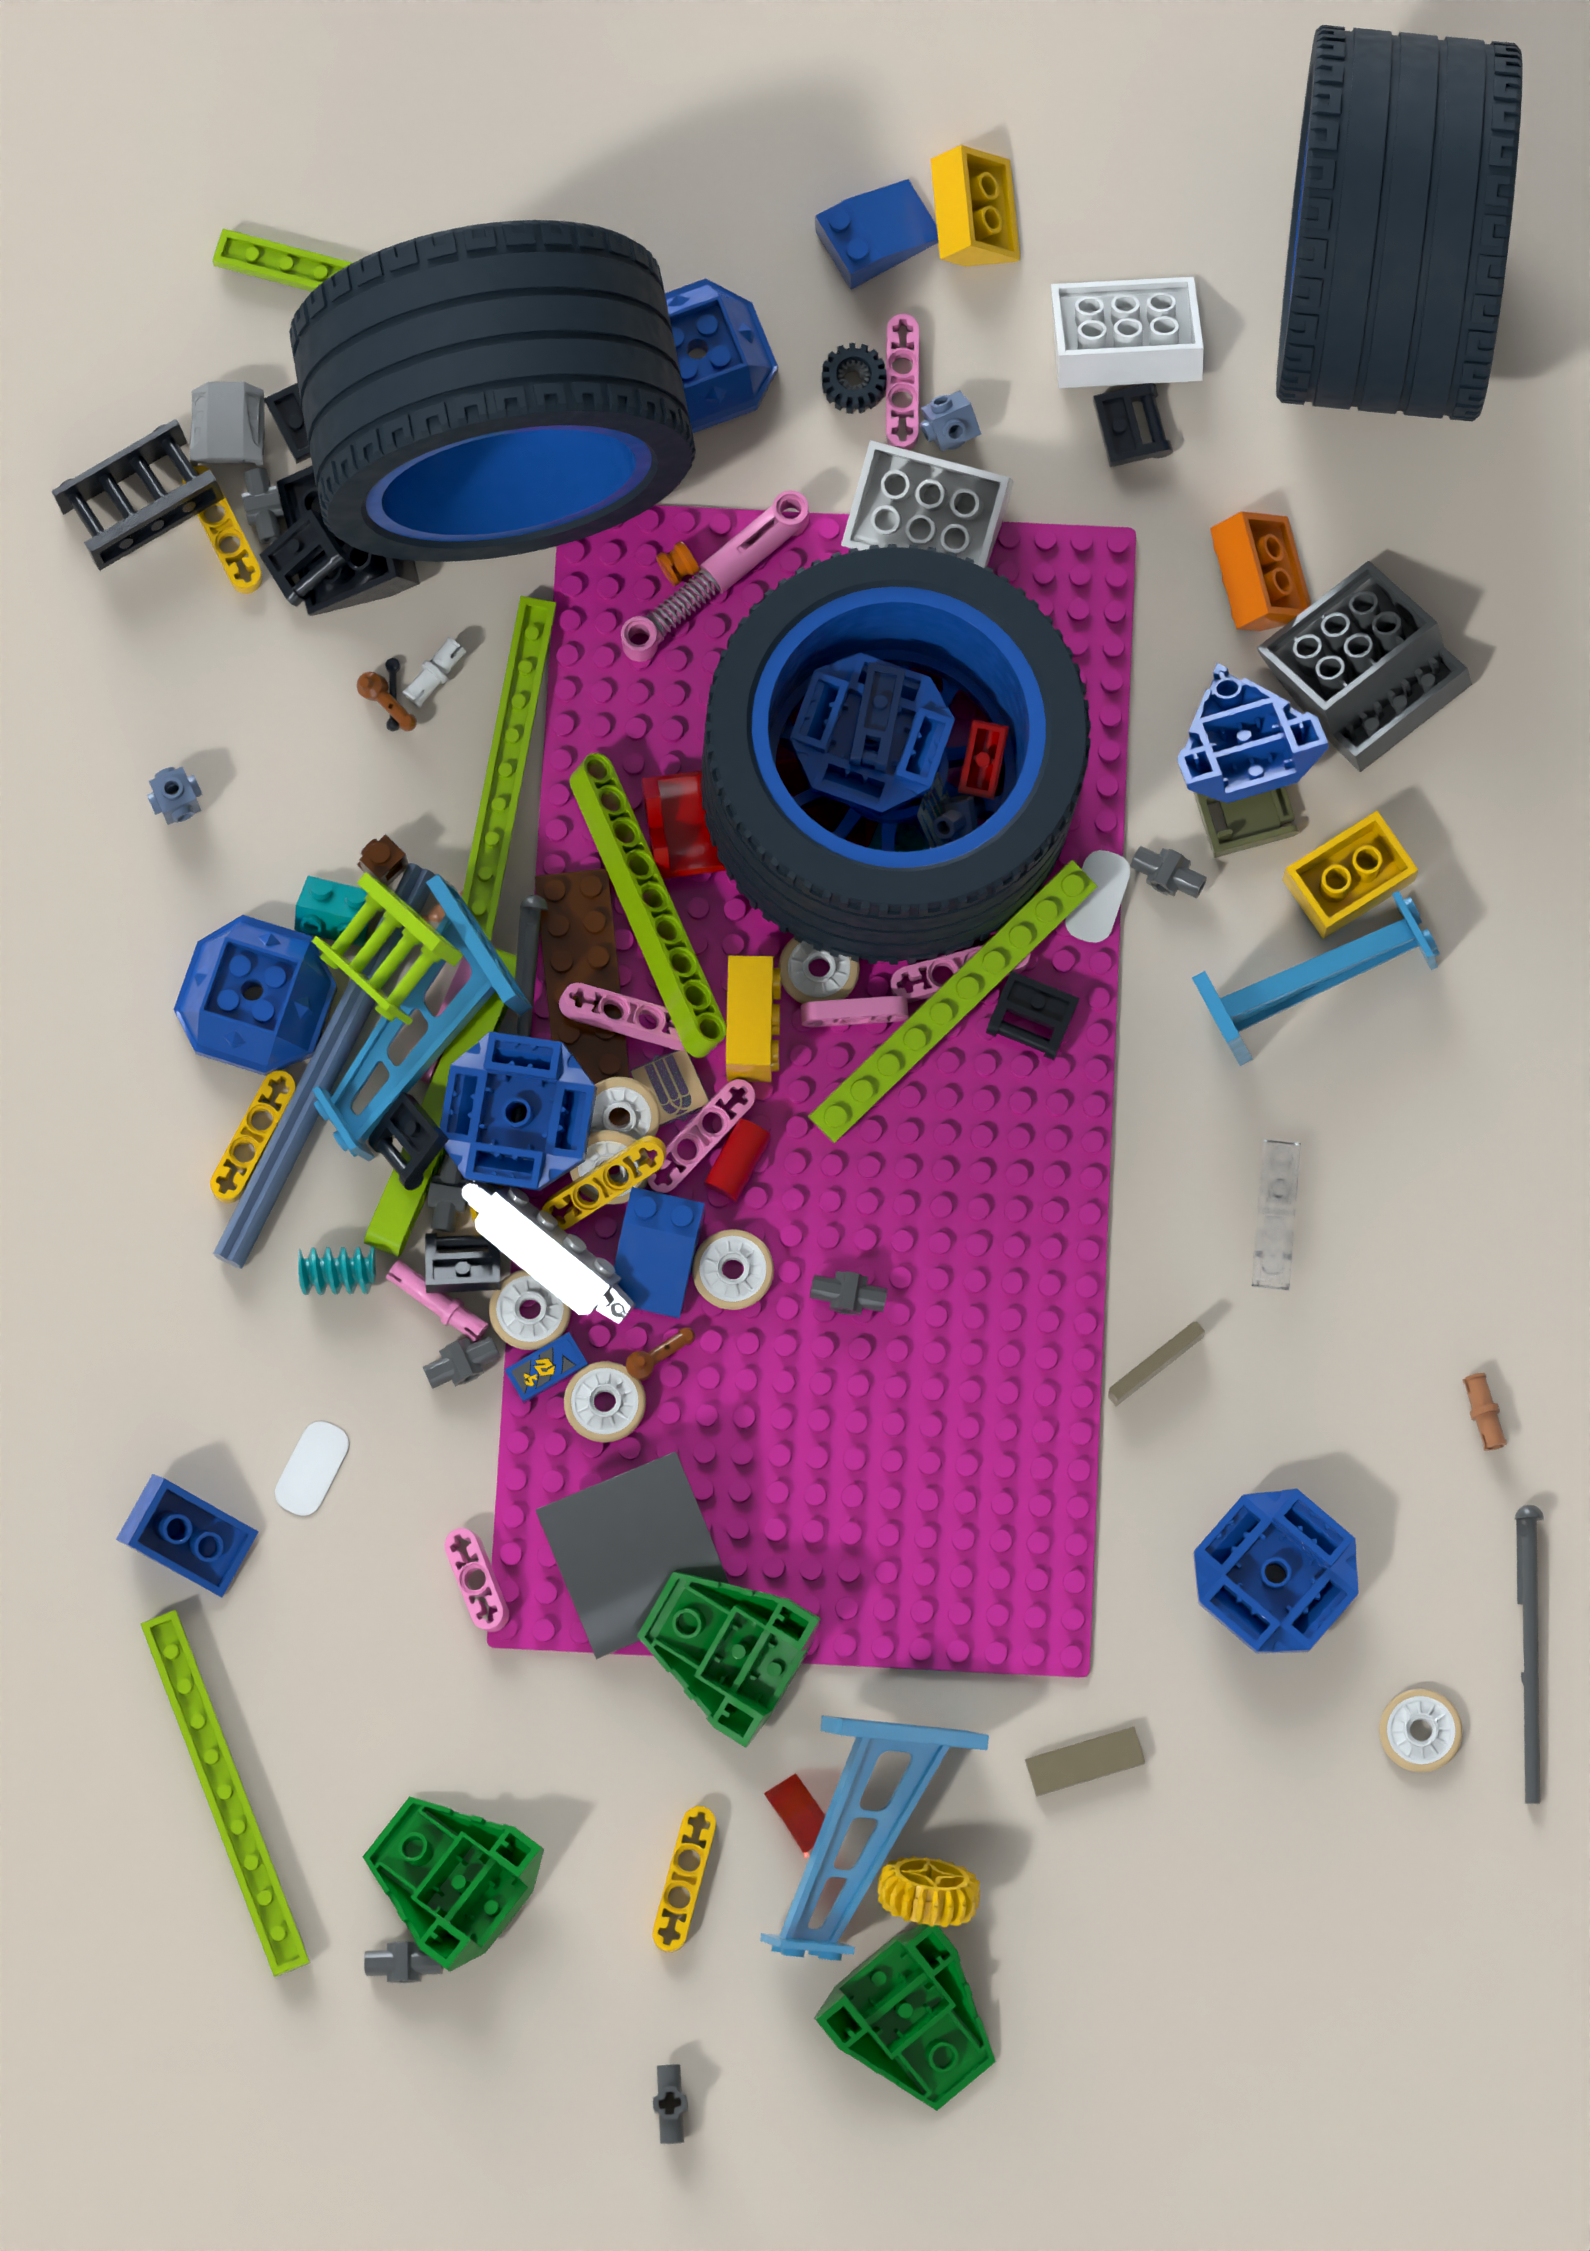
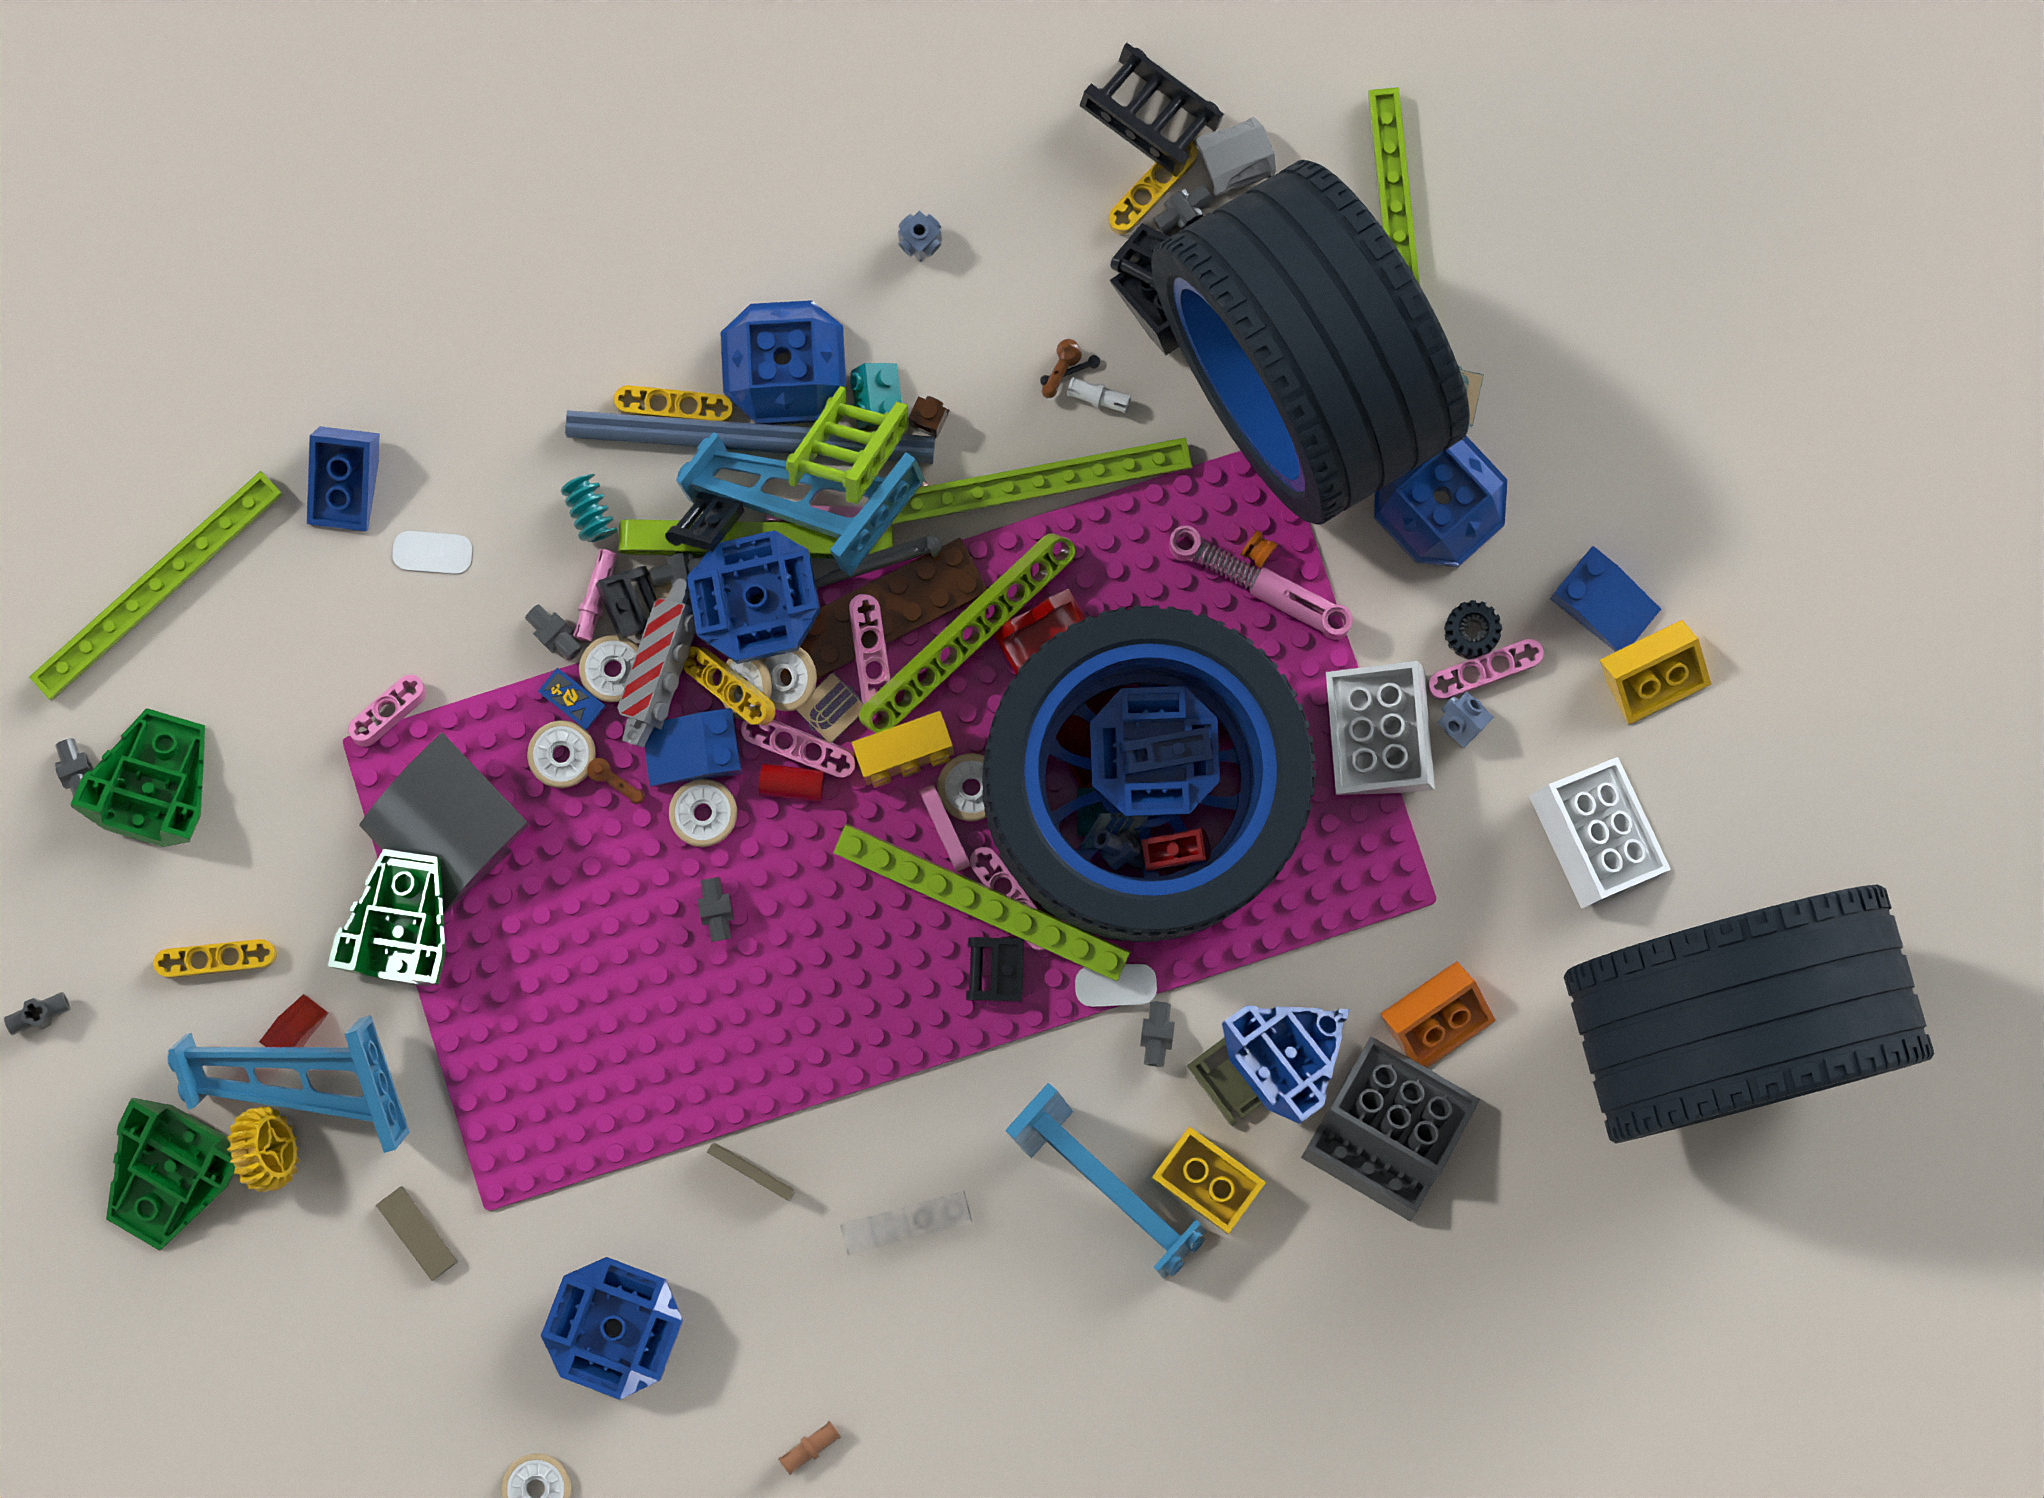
camera: 70 degrees right, 5 degrees up
(1121, 429) = (1517, 857): black plate -> none

